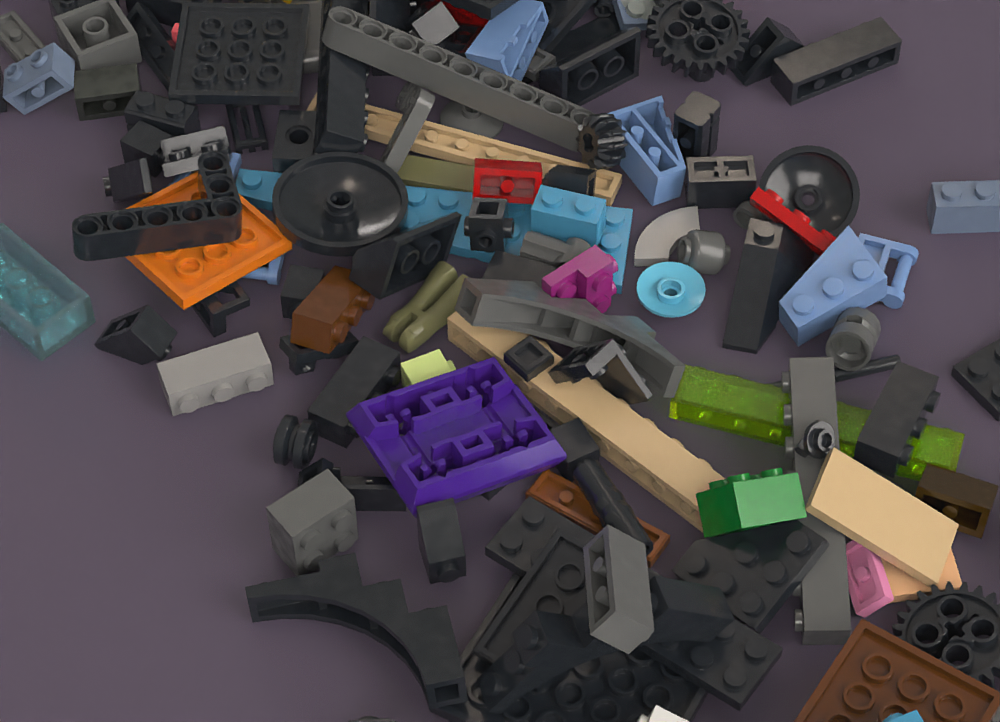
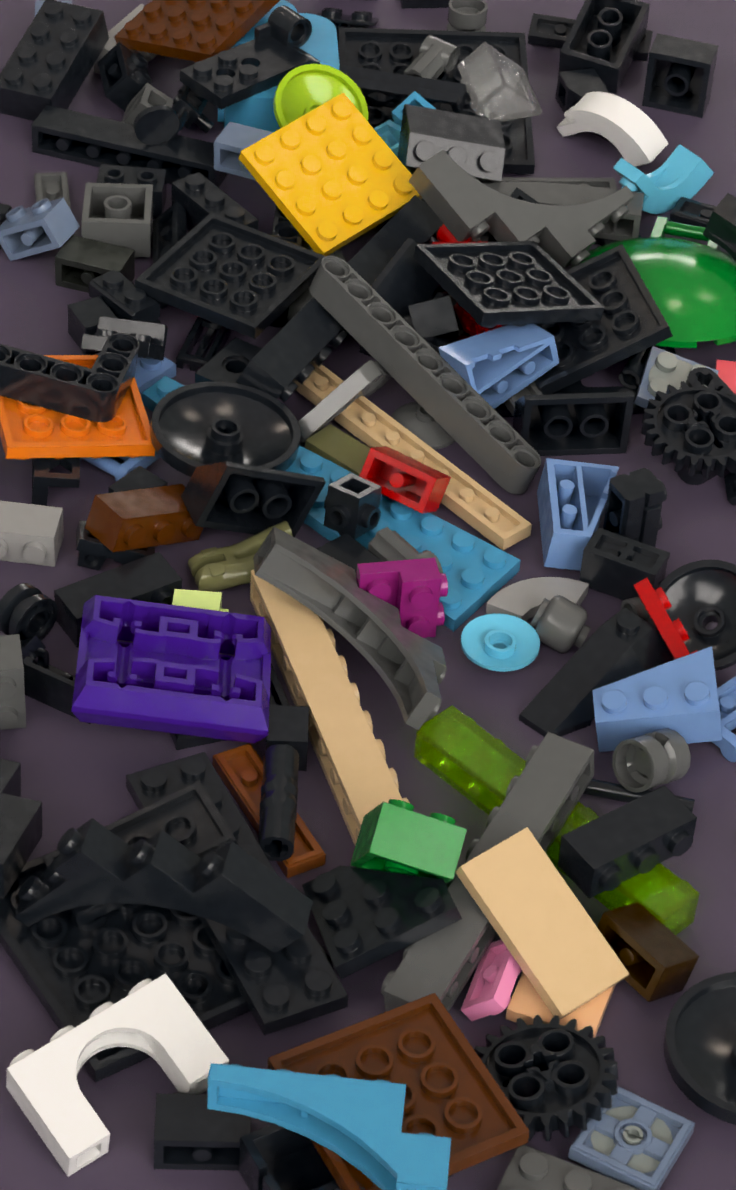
camera: 25 degrees right, 10 degrees down
(129, 181) = (51, 335): black slope -> none
(441, 541) = (89, 752): black slope -> none
(528, 358) = (299, 634): black tile -> none
(568, 215) = (440, 528): dark azure brick -> none
(572, 179) = (465, 510): black brick -> none
(601, 141) = (524, 481): black gear -> none
(607, 364) = (366, 664): black bracket -> none
(618, 589) = (183, 835): dark grey brick -> none
(817, 440) = (516, 814): black plate -> none

